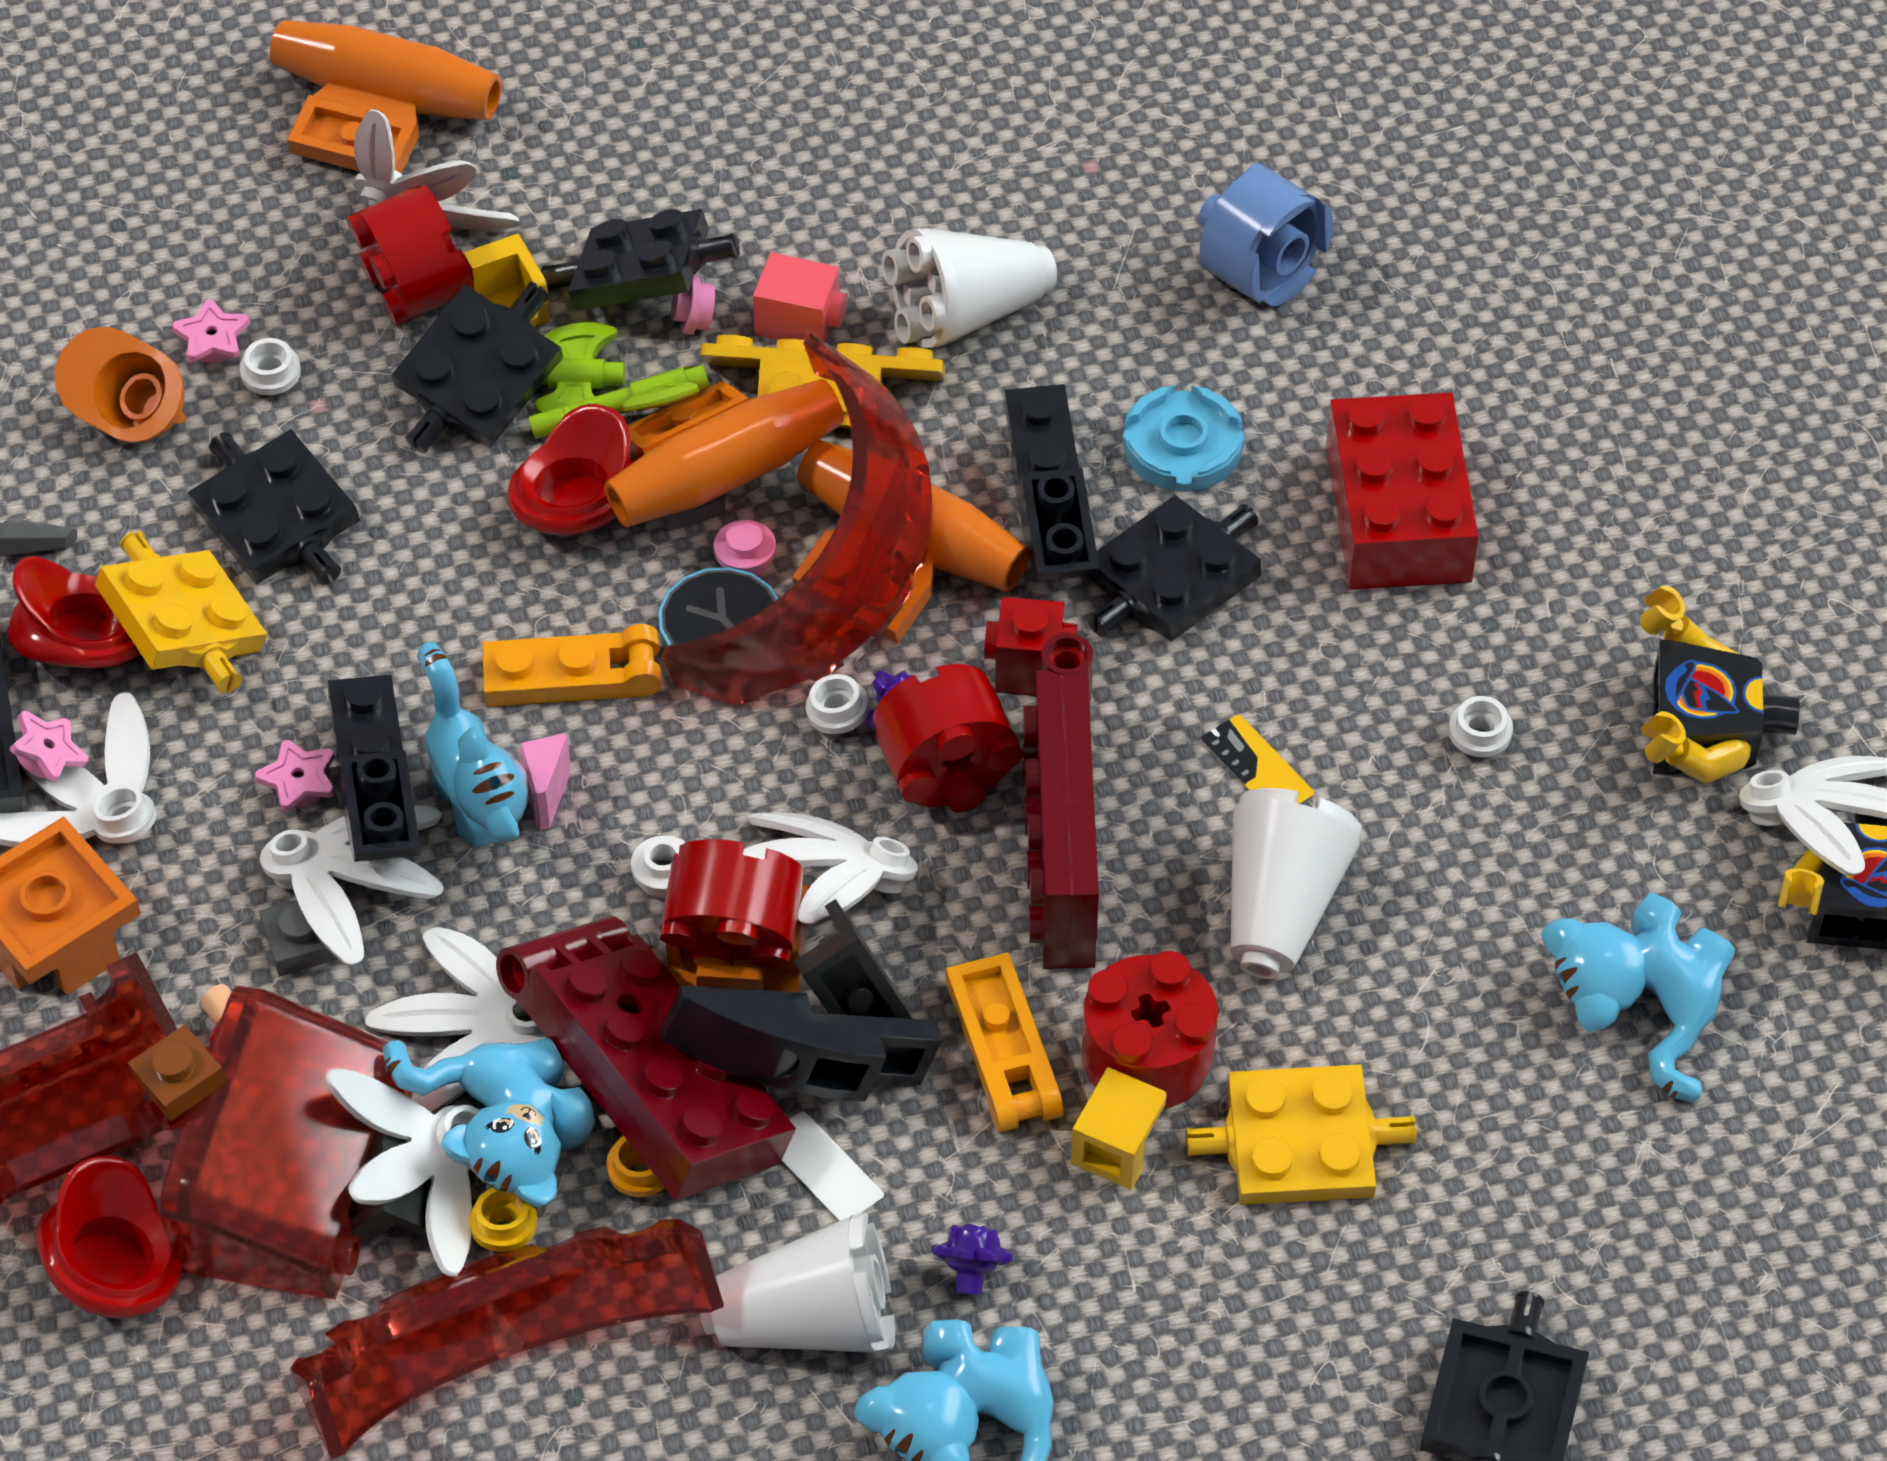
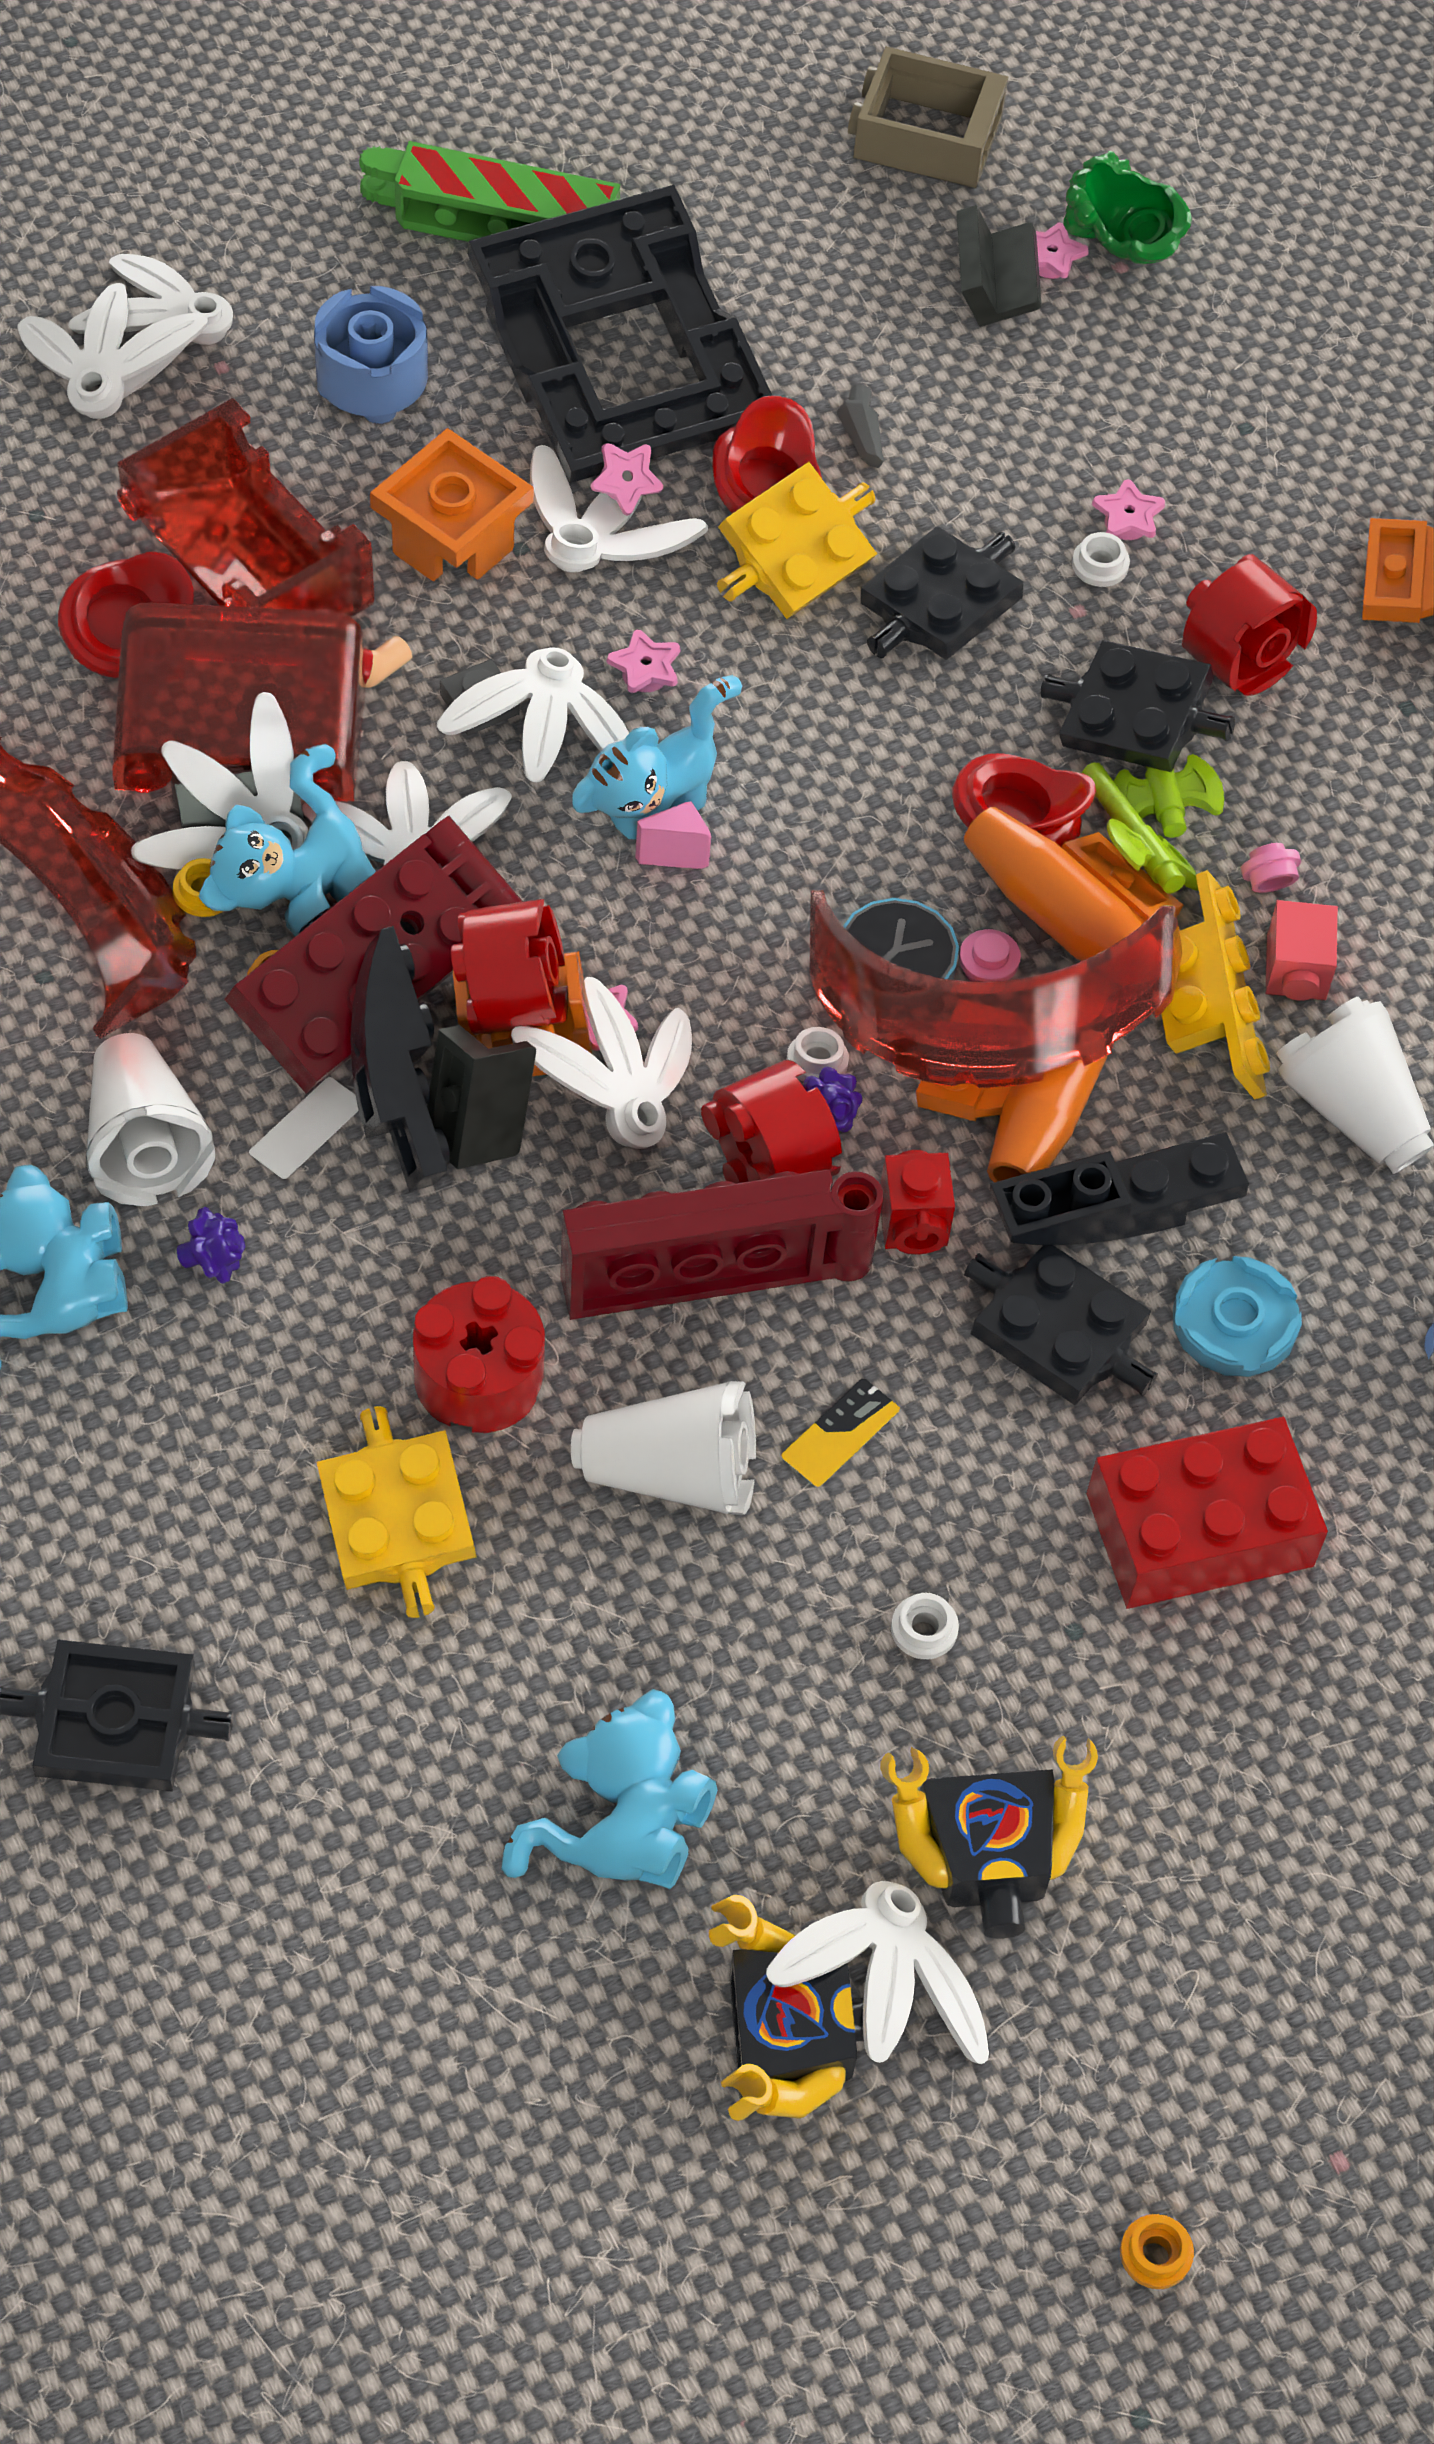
camera: 75 degrees right, 5 degrees up
(120, 384) = (1029, 451): orange piece -> none
(177, 1072) = (245, 586): dark orange plate -> none
(372, 769) = (611, 701): black slope -> none
(380, 180) = (1334, 605): white plant -> none
(503, 271) = (1261, 717): yellow panel -> none
(572, 667) = (815, 840): light orange plate -> none
(640, 259) = (1303, 809): black plate -> none
(646, 873) = (603, 962): white plate -> none
(1003, 1041) = (455, 1243): light orange plate -> none
(1115, 1126) = (365, 1337): yellow panel -> none

